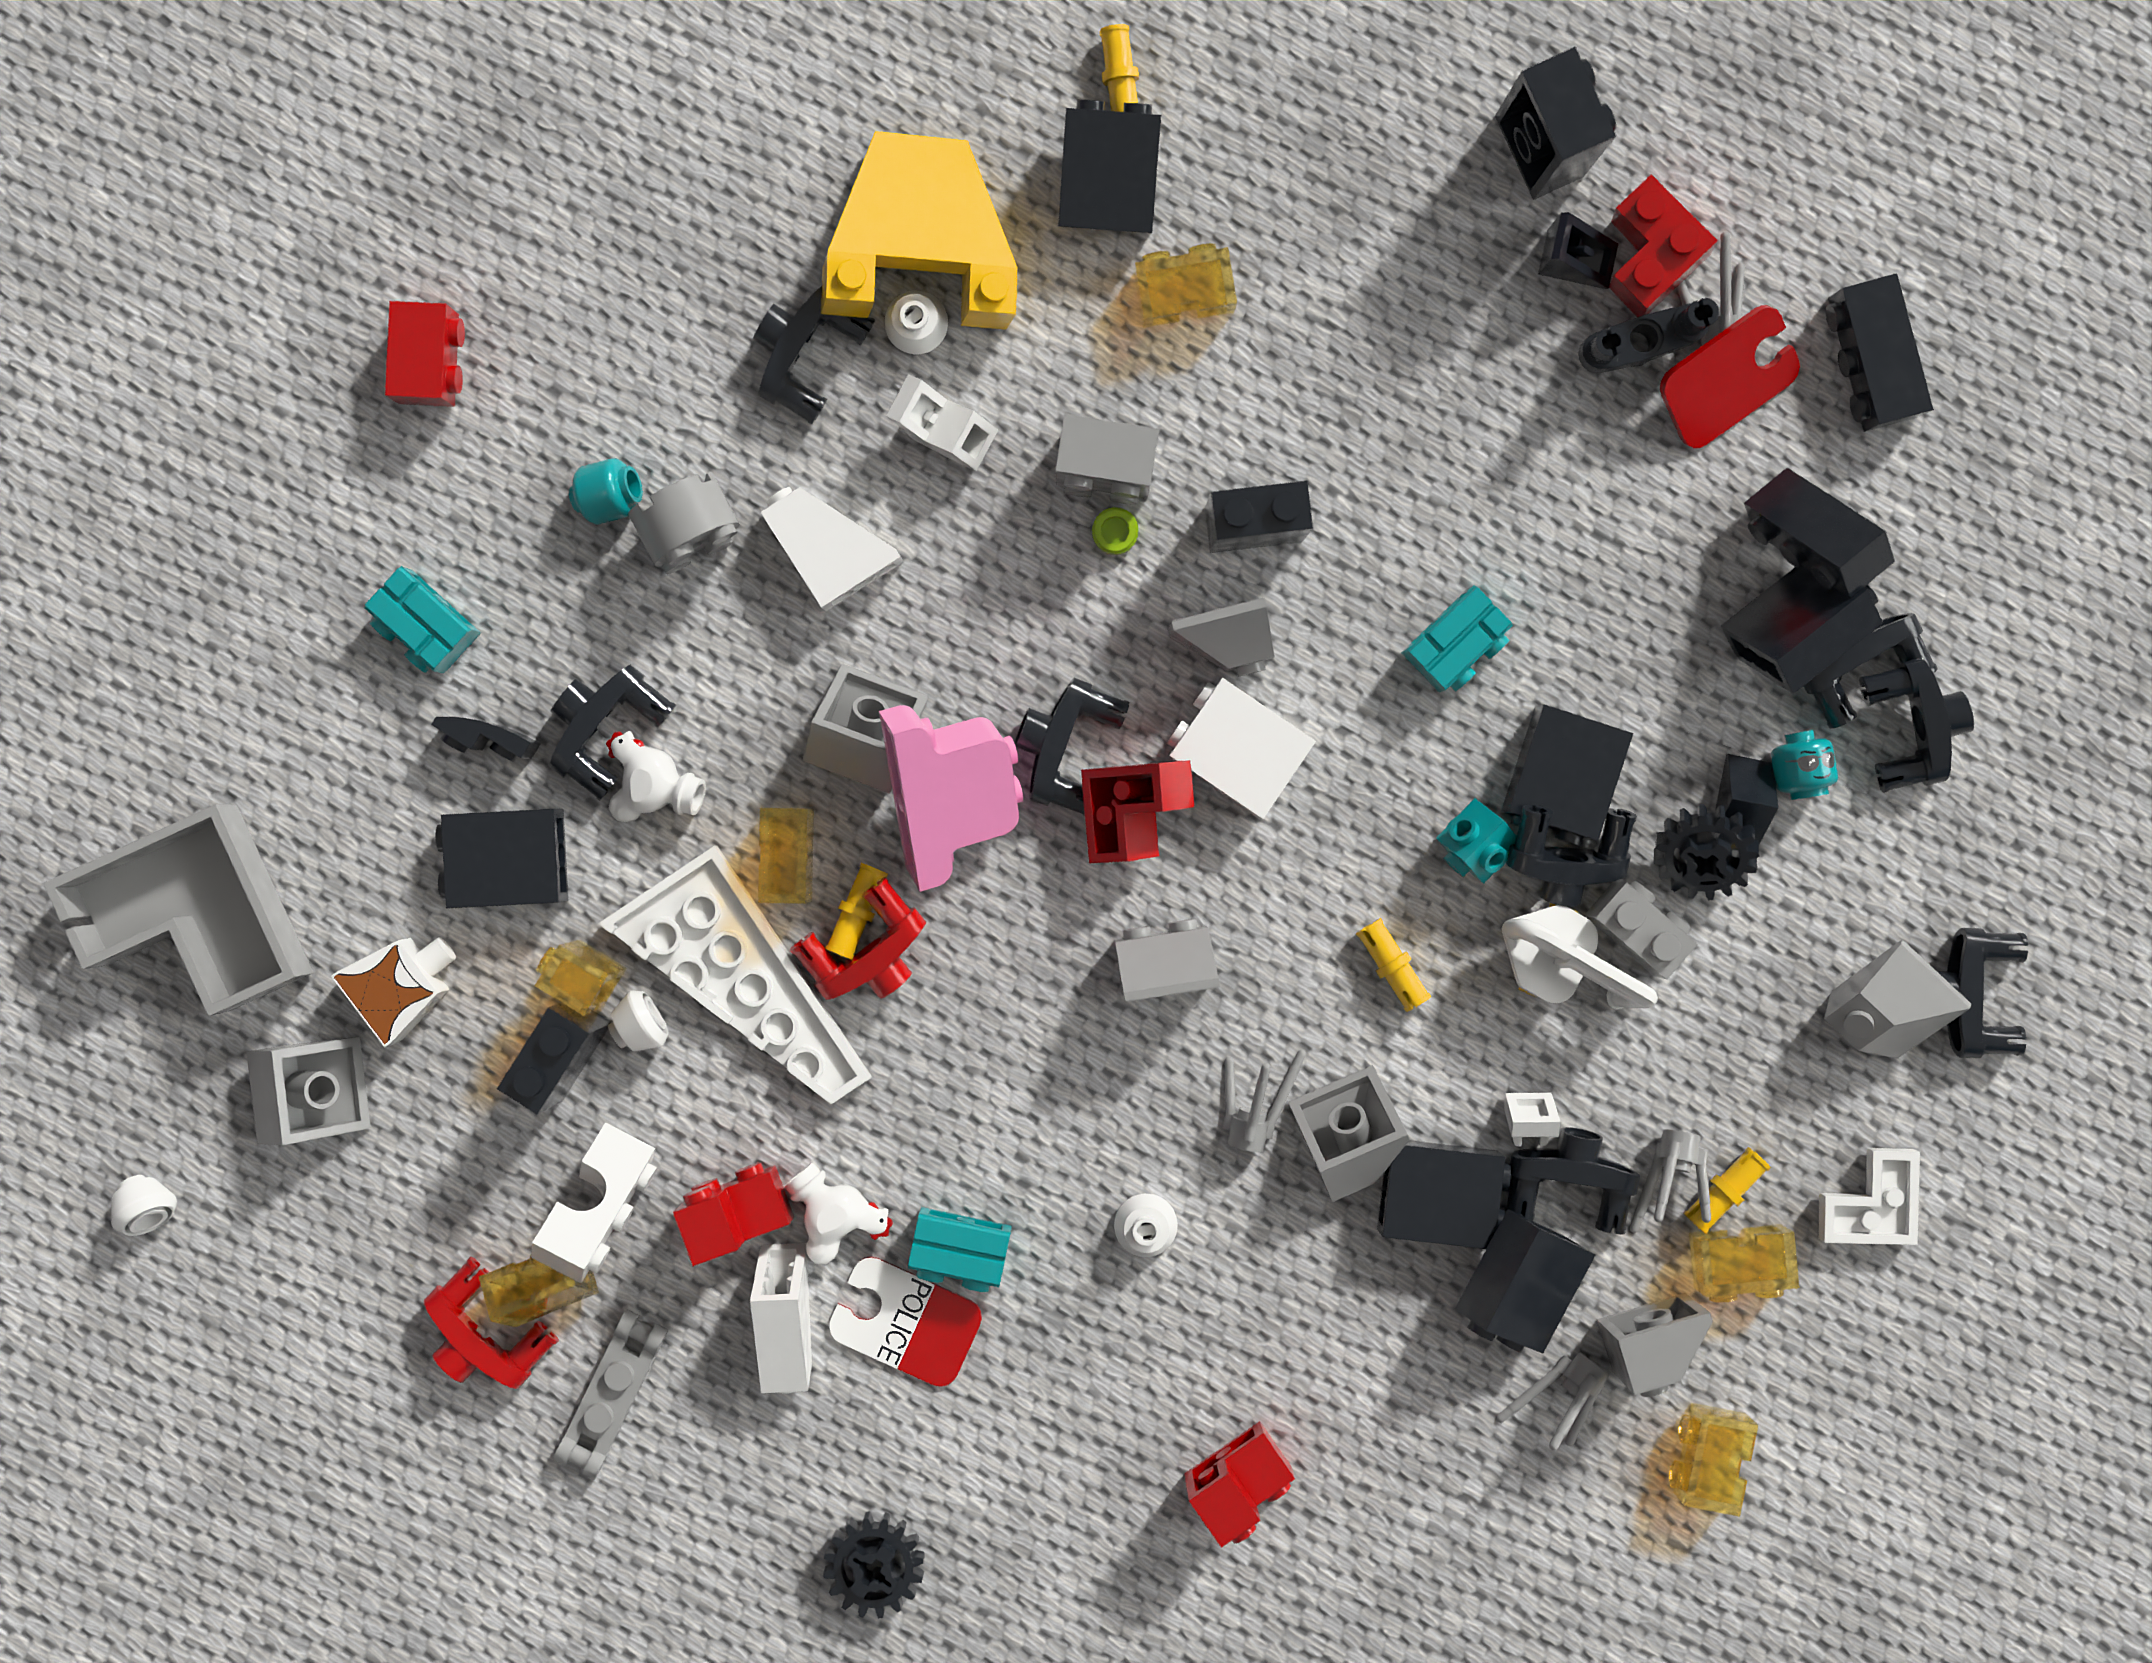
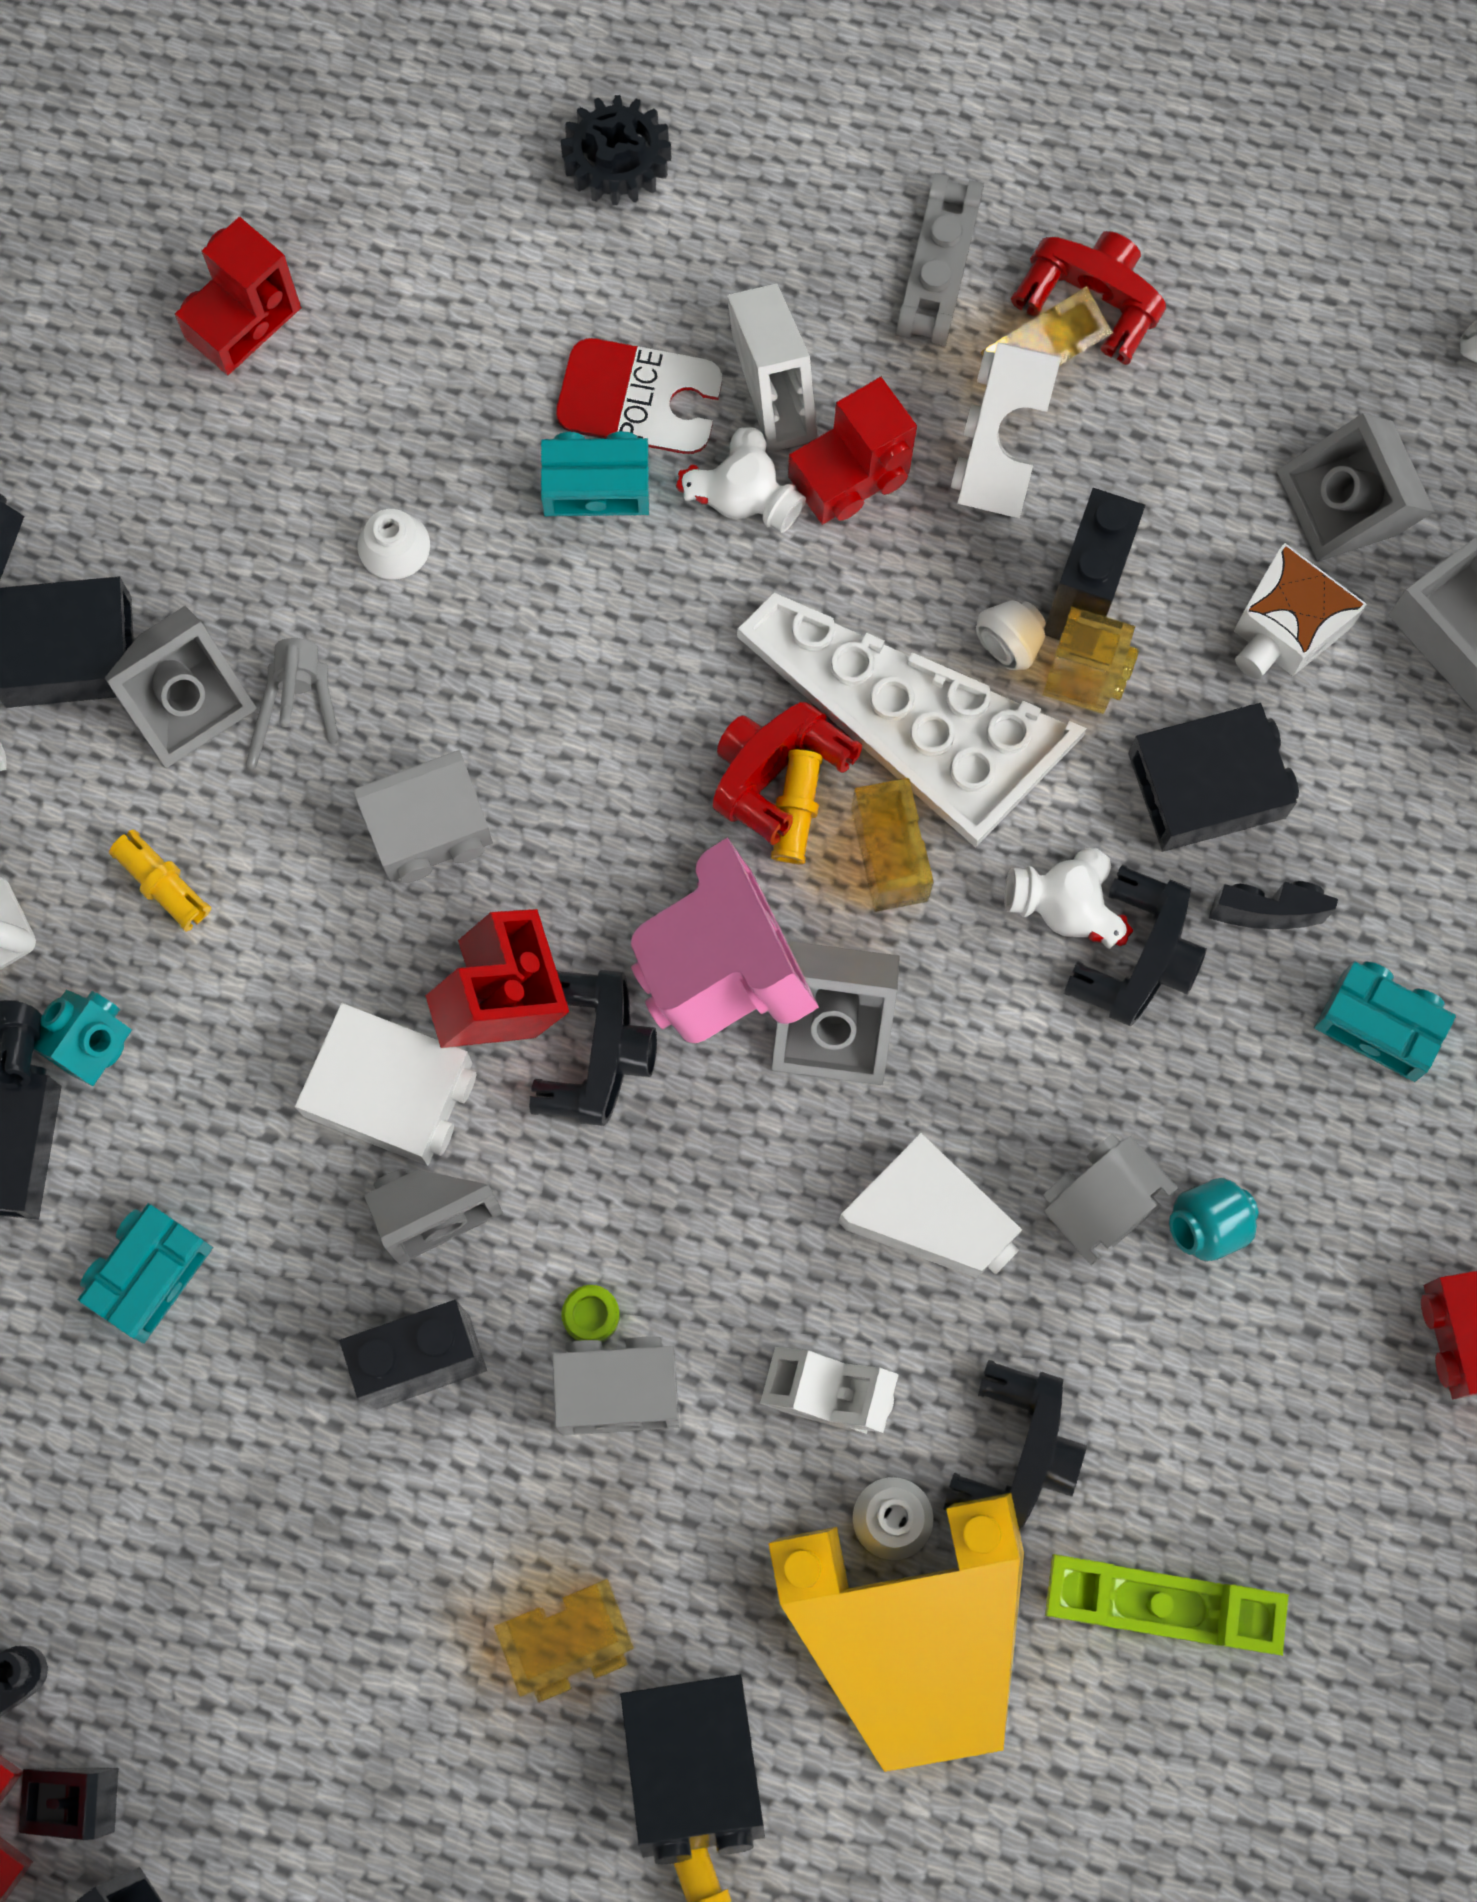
camera: 165 degrees right, 15 degrees down
(723, 209) = (1166, 1605): none -> lime slope

